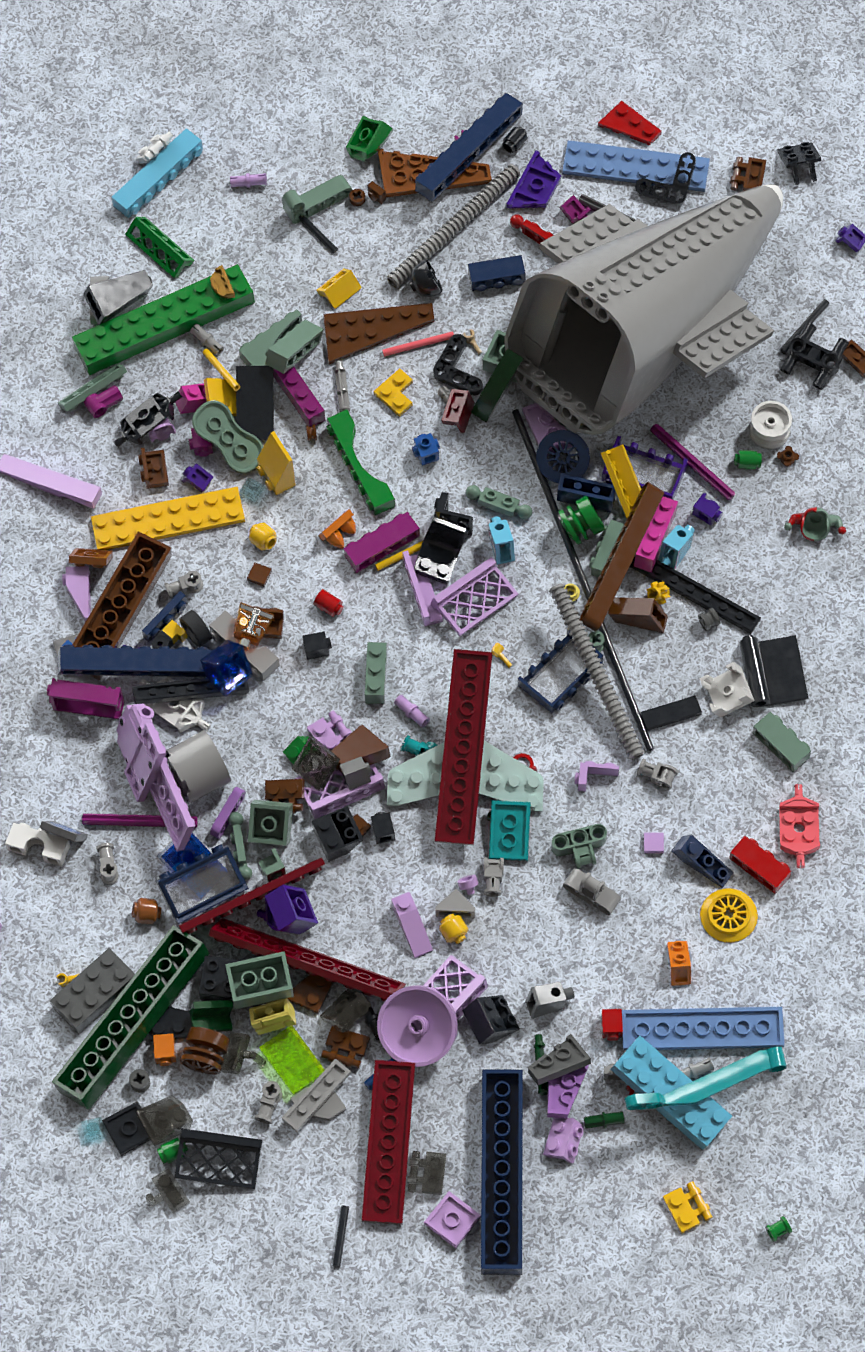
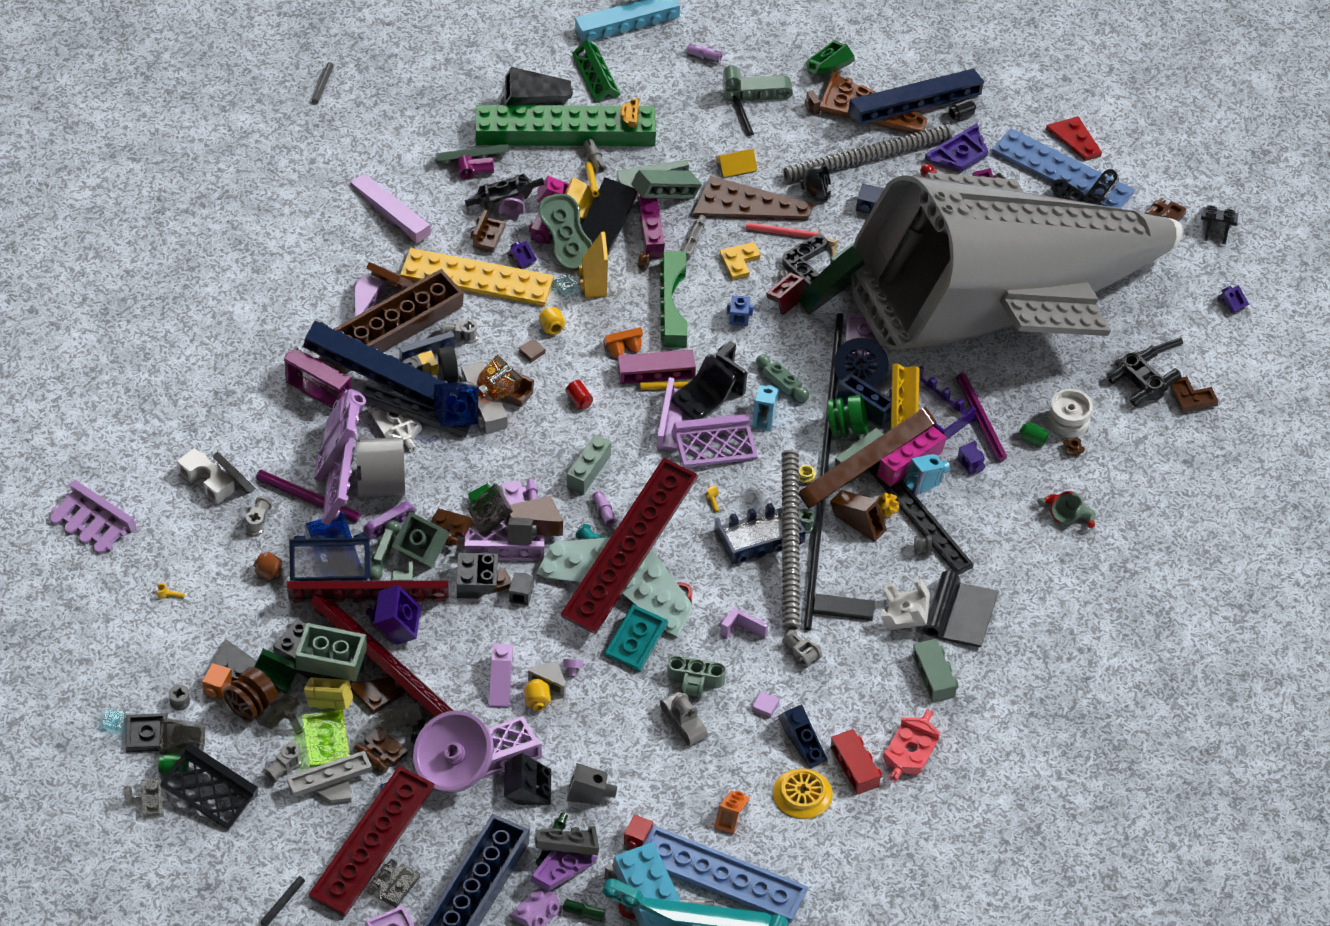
camera: 20 degrees right, 15 degrees down
(92, 991) = (183, 608): dark grey brick -> none
(130, 1017) = (200, 641): dark green brick -> none
(316, 645) = (548, 422): black brick -> none
(358, 202) = (794, 97): reddish brown bush -> none
(493, 874) = (600, 667): light grey connector -> none

